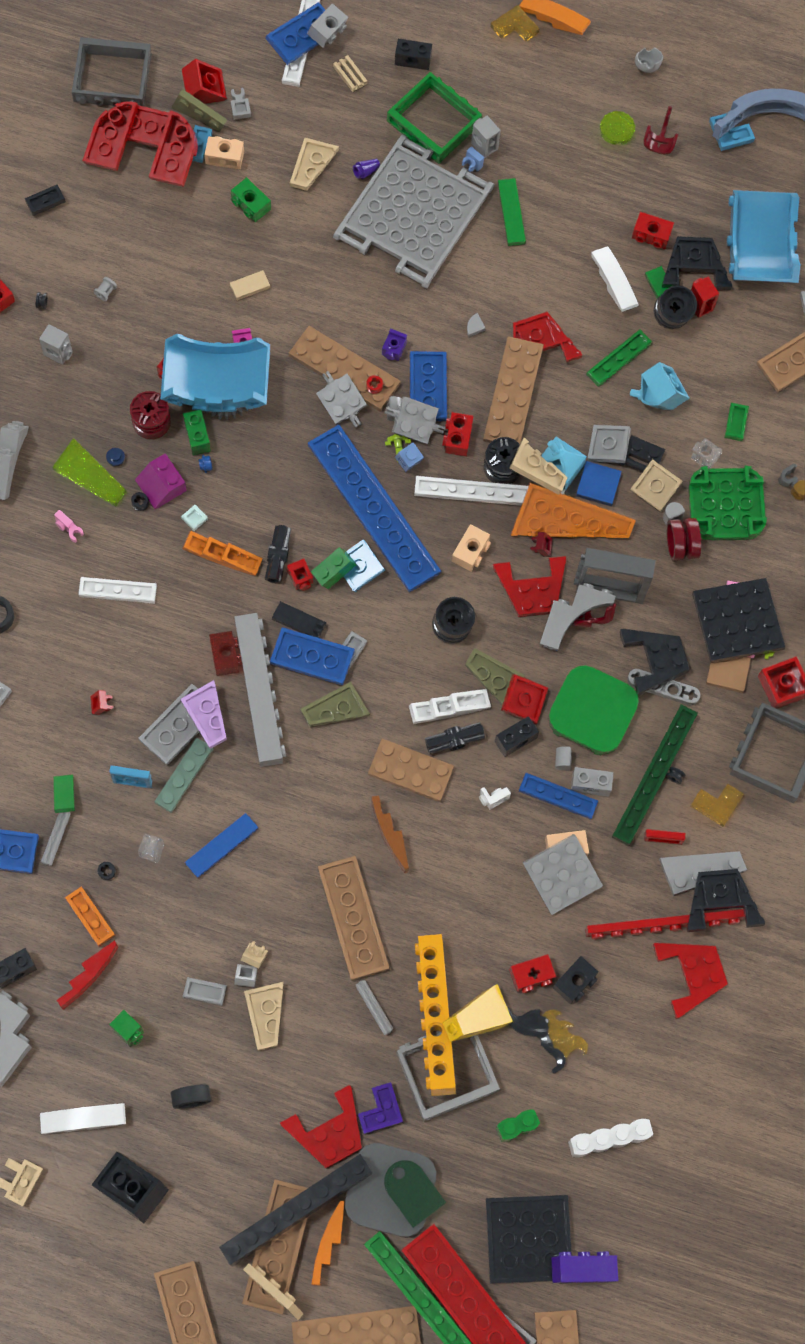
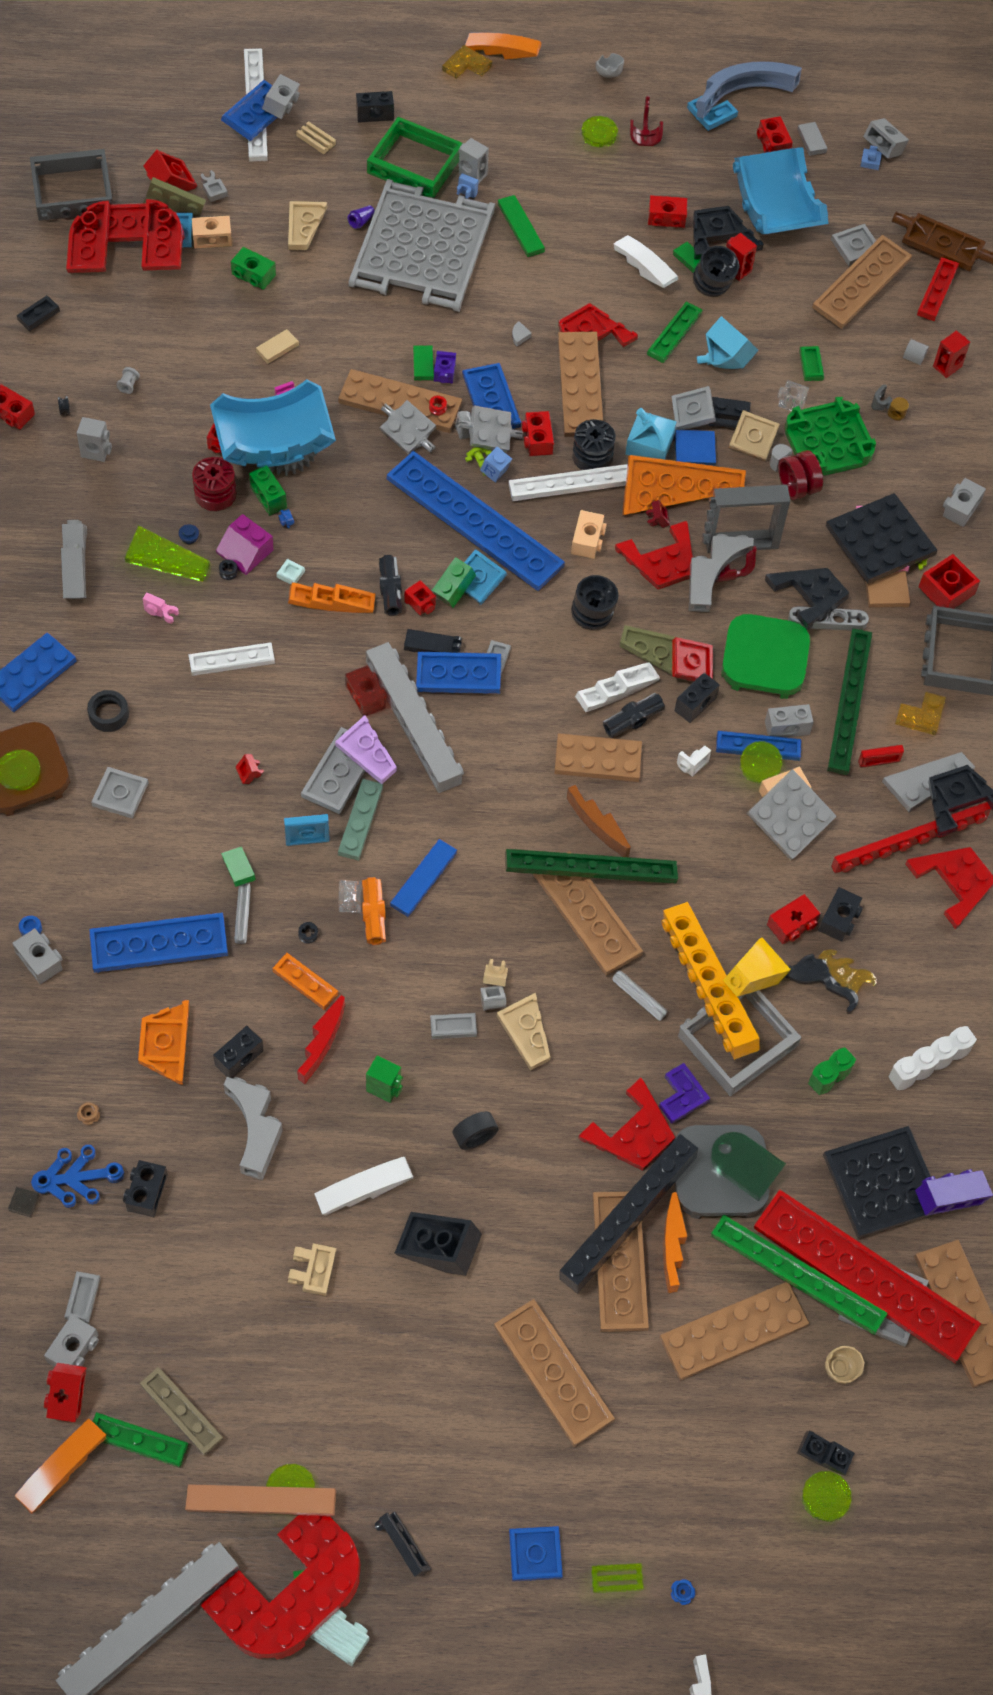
camera: 15 degrees left, 10 degrees down
(168, 866) = (373, 911): none -> orange piece
(272, 1288) = (624, 1298): tan wing -> none
(335, 707) = (499, 715): olive wing -> none
(368, 877) = (591, 866): none -> dark green plate
(377, 334) = (423, 362): none -> green tile
(536, 468) = (626, 438): tan wing -> none
(553, 814) = (760, 761): none -> clear neon green tile
(563, 758) = (752, 707): light grey brick -> none
(675, 775) = (871, 696): black bush -> none
(783, 174) = (774, 134): none -> red brick

